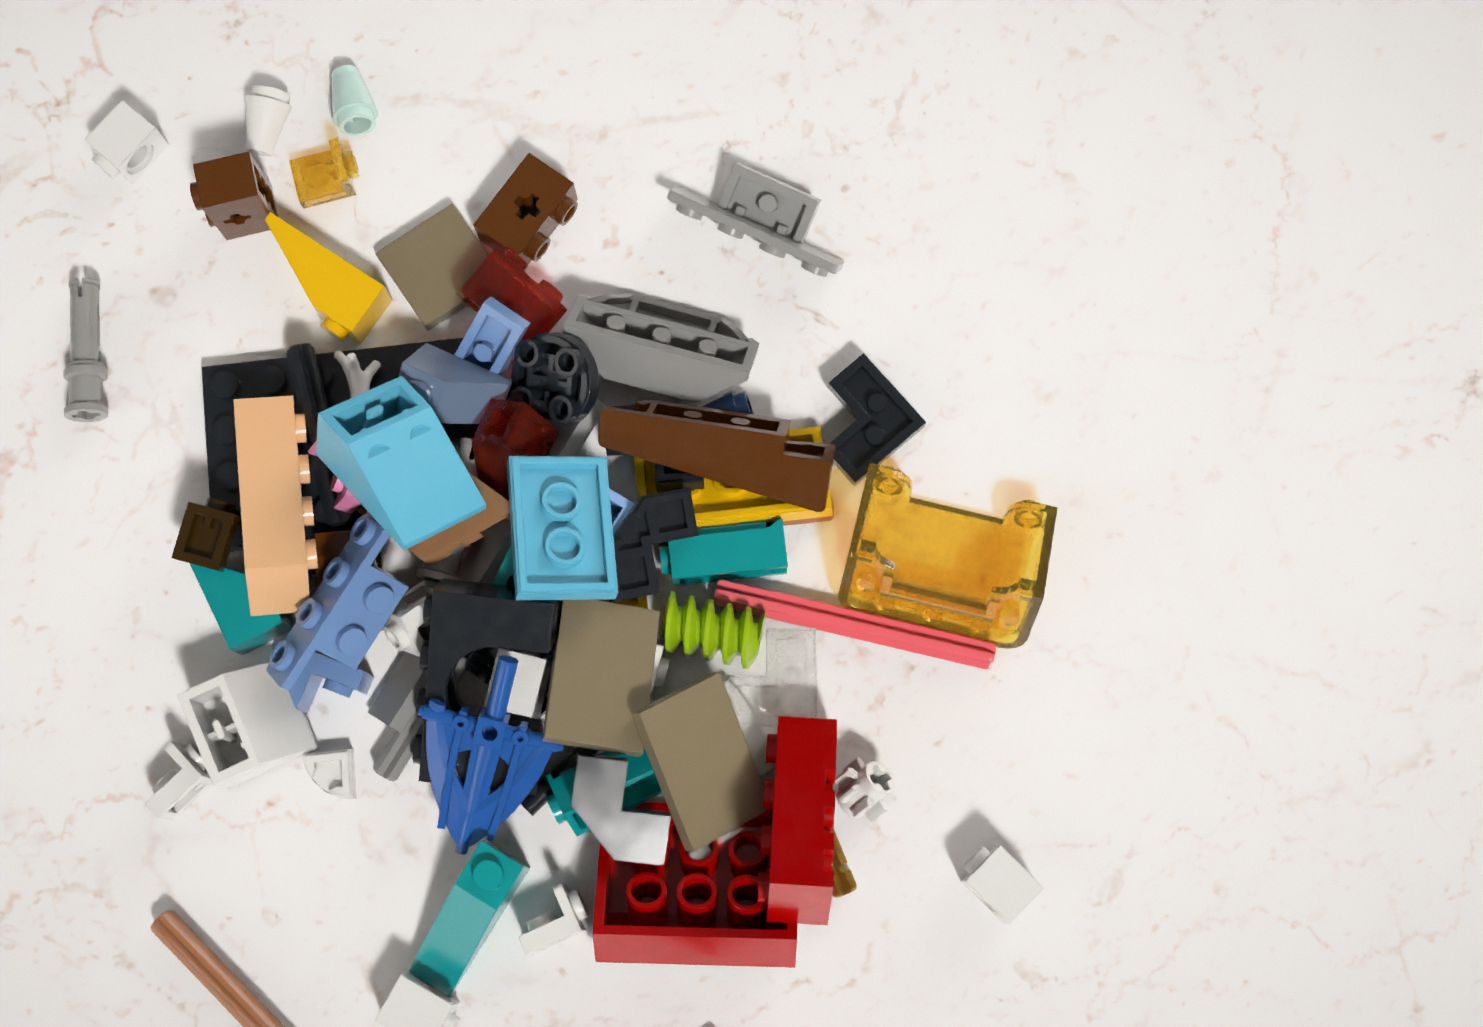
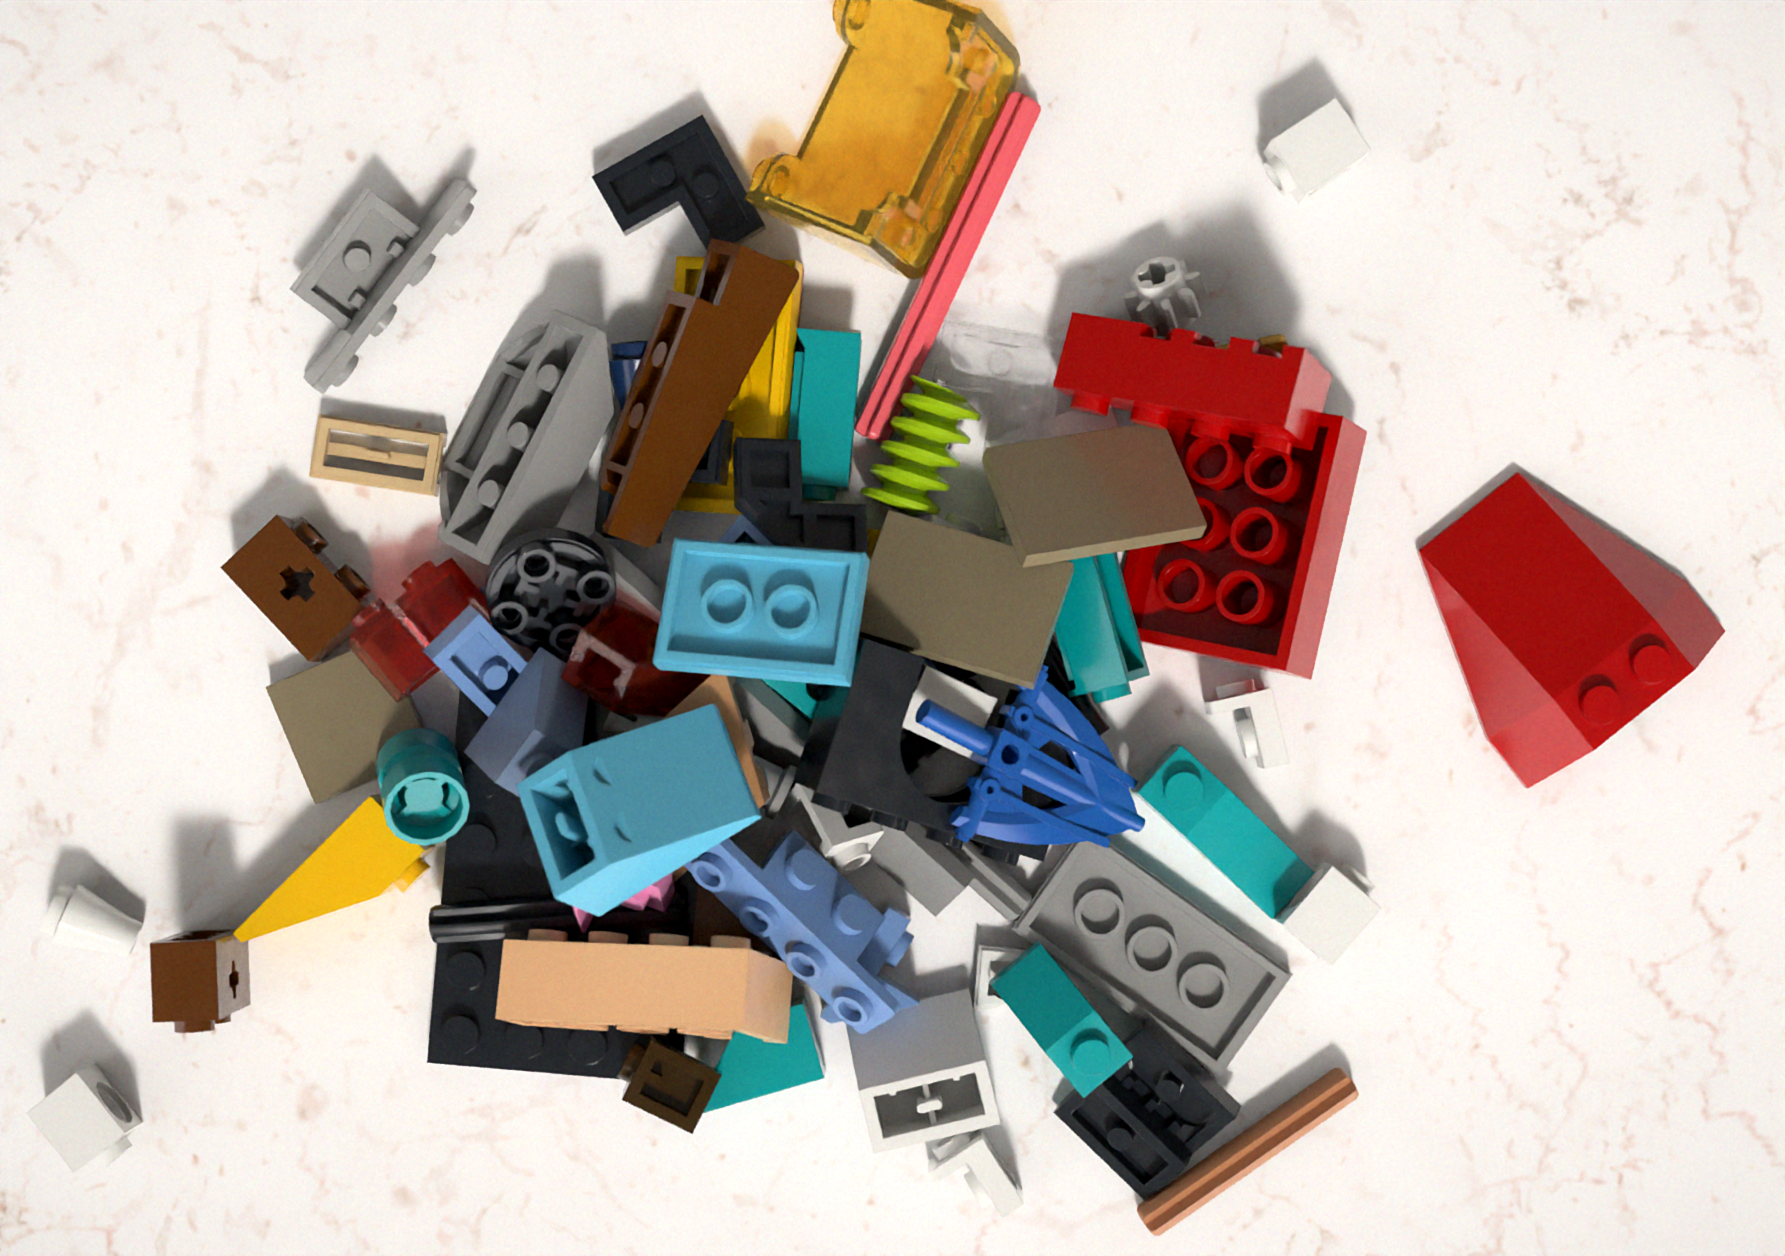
camera: 80 degrees left, 10 degrees up
(85, 371) = (400, 1219): light grey pin -> none
(246, 902) = (1150, 1111): none -> black slope
(302, 820) = (1061, 1019): none -> teal slope
(325, 175) = (188, 854): clear yellow bracket -> none
(352, 102) = (90, 799): light aqua cone -> none
(357, 379) = (494, 853): white bar -> none
(366, 884) = (1152, 951): none -> light grey tile
(396, 320) = (422, 786): none -> teal wheel
(623, 831) = (1121, 632): tile -> none
(635, 285) = (431, 464): none -> tan tile

